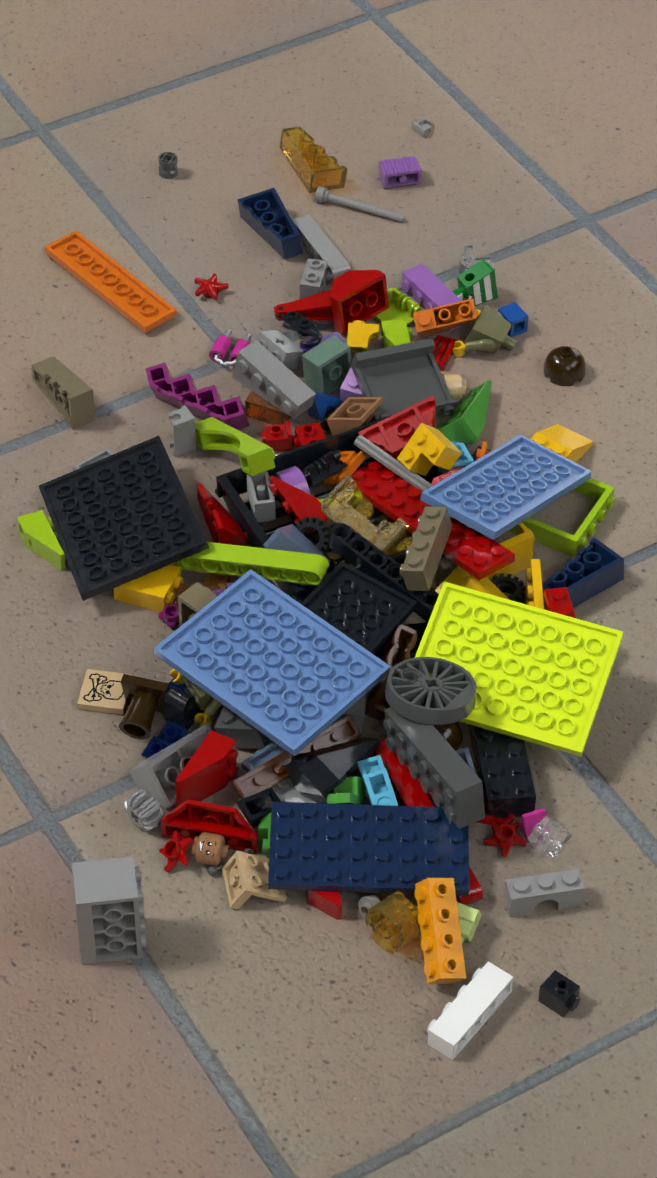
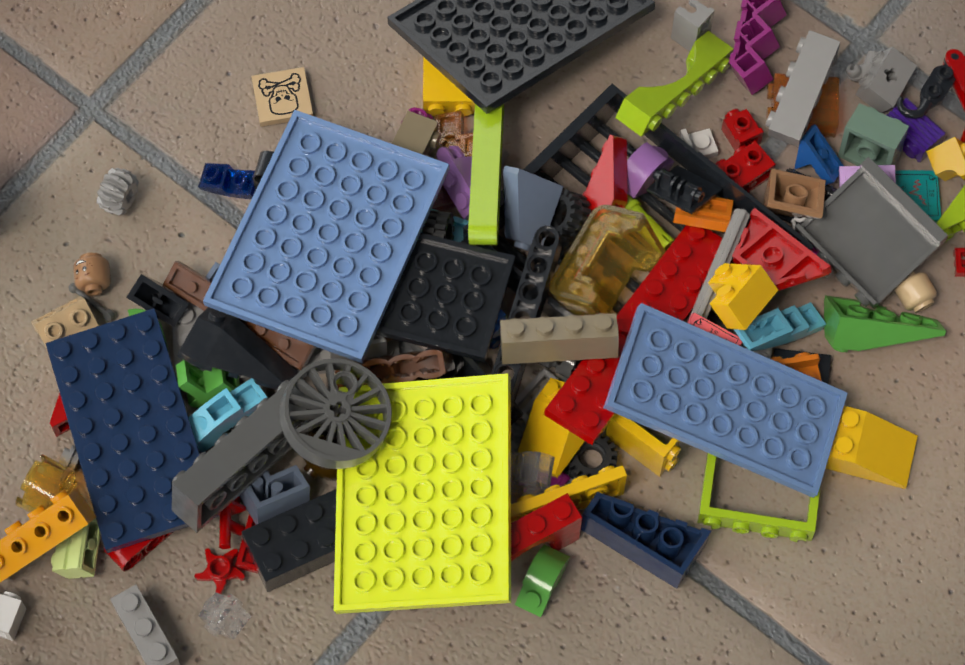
camera: 70 degrees right, 20 degrees up
(143, 698) = (252, 139): dark brown plant -> none
(160, 770) = (192, 199): light grey wedge -> none
(176, 850) = (78, 241): red animal -> none
(198, 817) = (125, 262): red wedge -> none
(208, 769) = (192, 231): red slope -> none
(219, 521) = (556, 115): red wedge -> none
(223, 344) = (870, 20): dark pink piece -> none
(261, 497) = (593, 142): light grey brick -> none
(529, 820) = (246, 594): dark pink slope -> none

